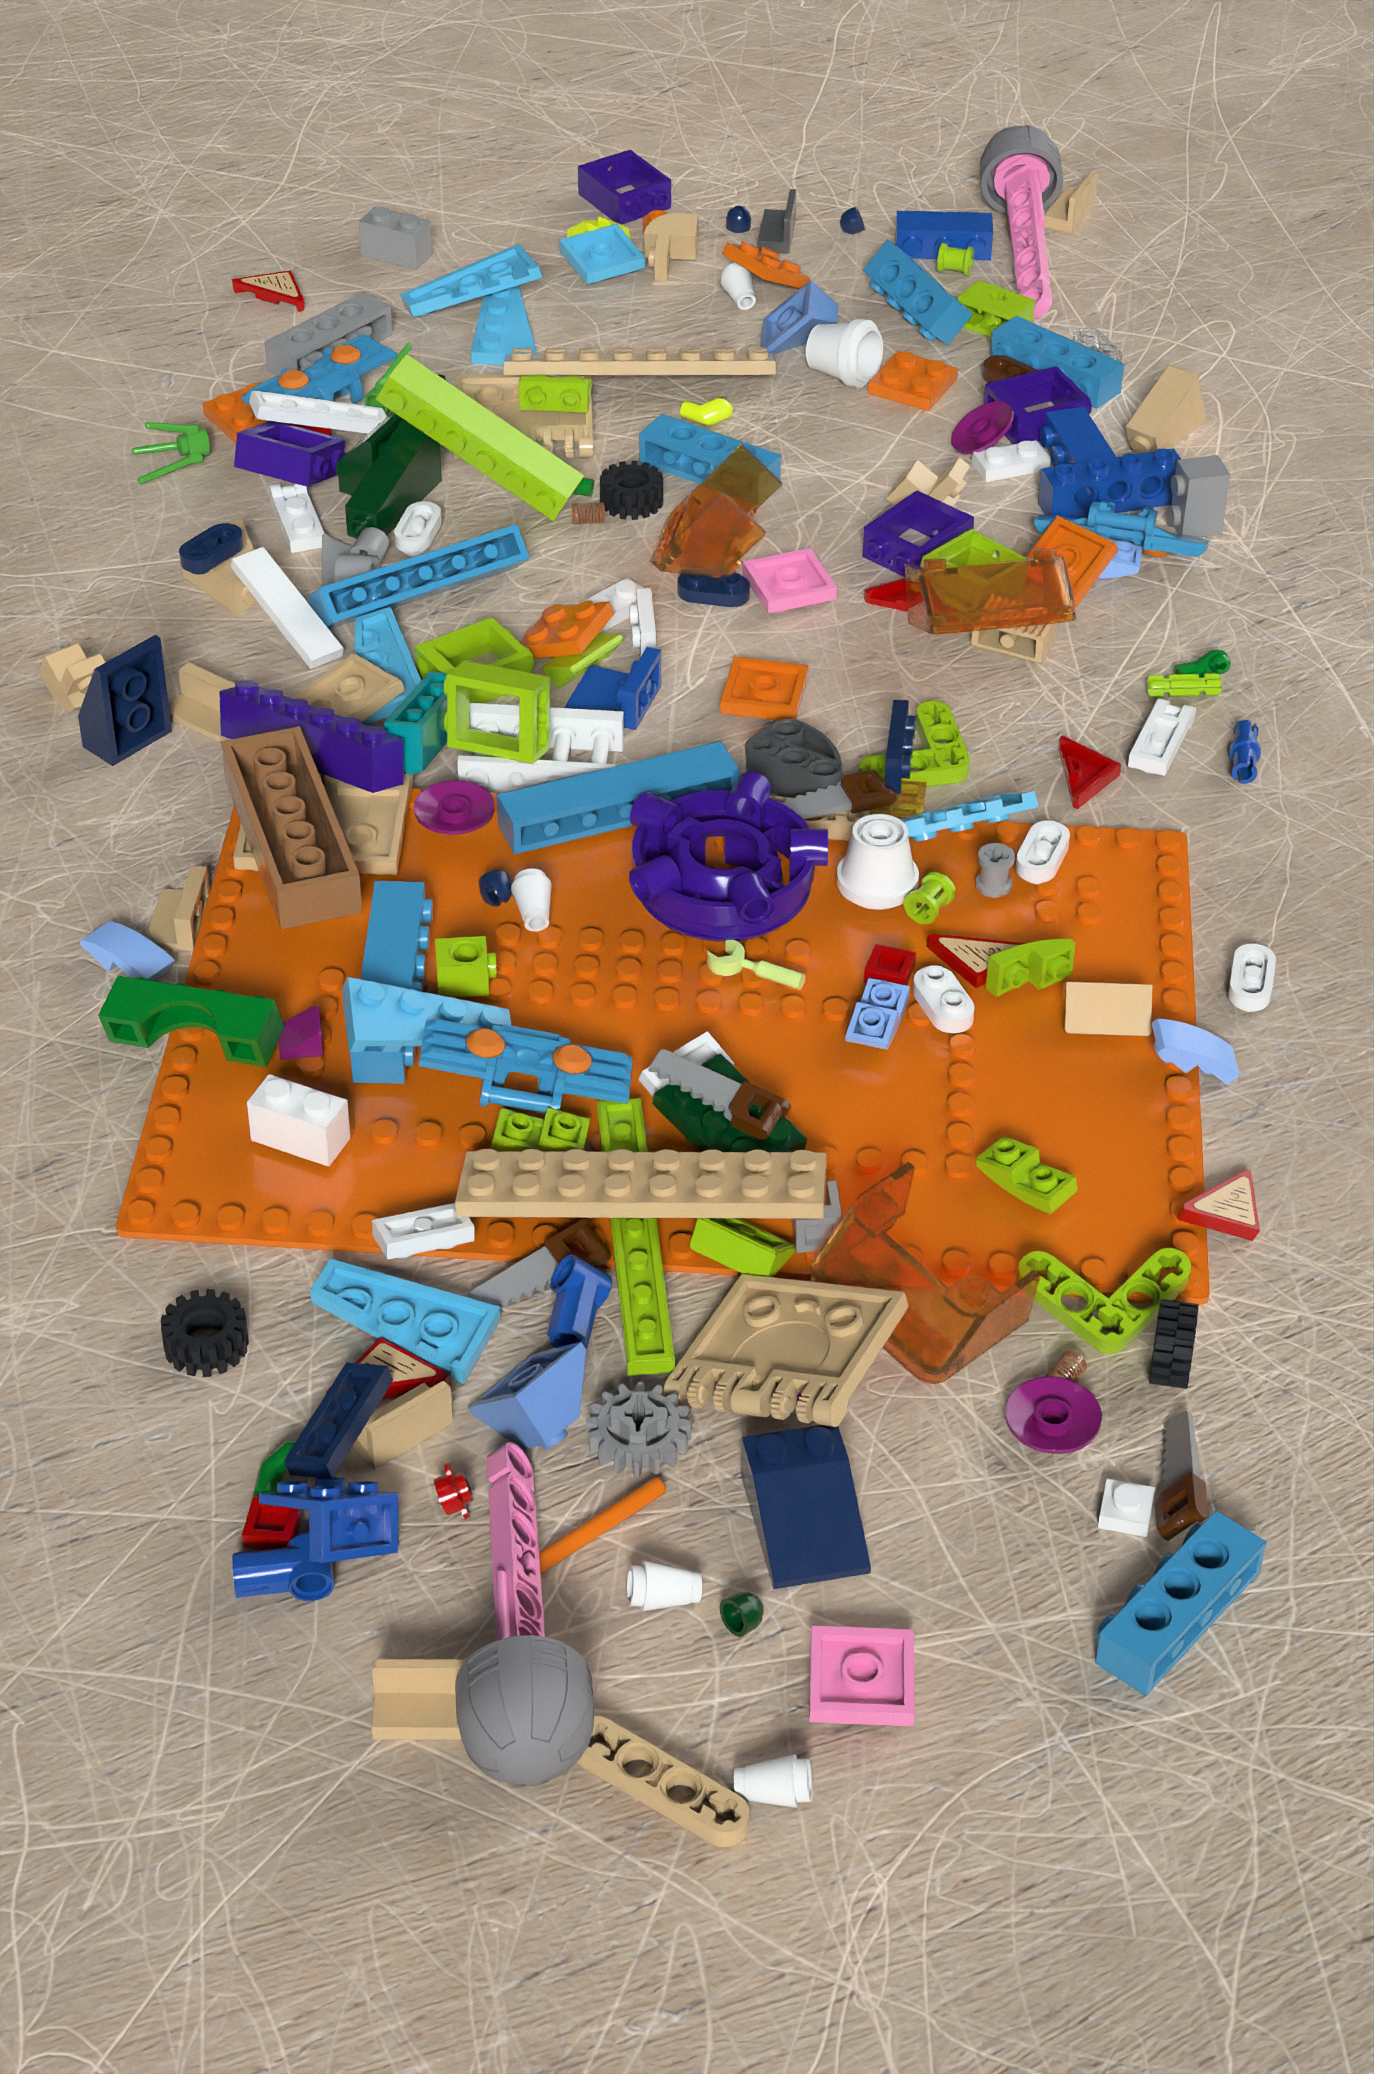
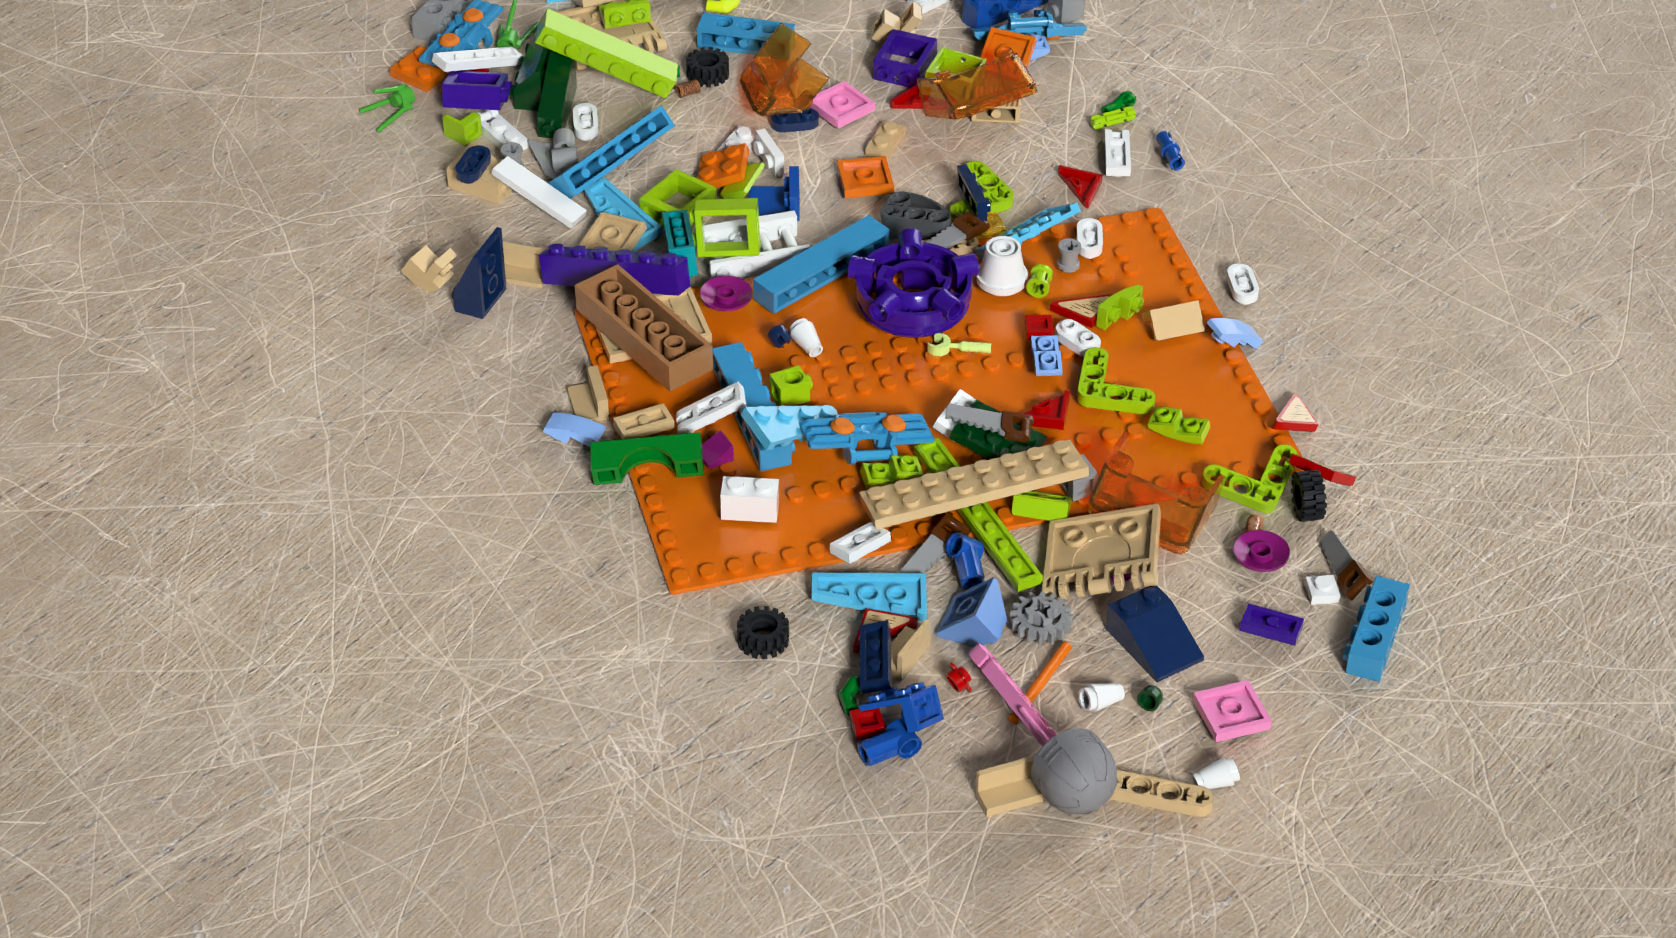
camera: 20 degrees left, 0 degrees up
(223, 966) = (644, 422): none -> tan plate
(249, 502) = (463, 130): none -> lime panel
(284, 552) = (512, 150): none -> light grey bush
(319, 969) = (711, 408): none -> white plate
(827, 645) = (885, 140): none -> tan plate
(834, 1103) = (1050, 412): none -> red tile
(979, 1115) = (1141, 400): none -> lime beam
(1007, 1544) = (1271, 624): none -> dark purple plate
(1221, 1311) = (1328, 473): none -> red tile

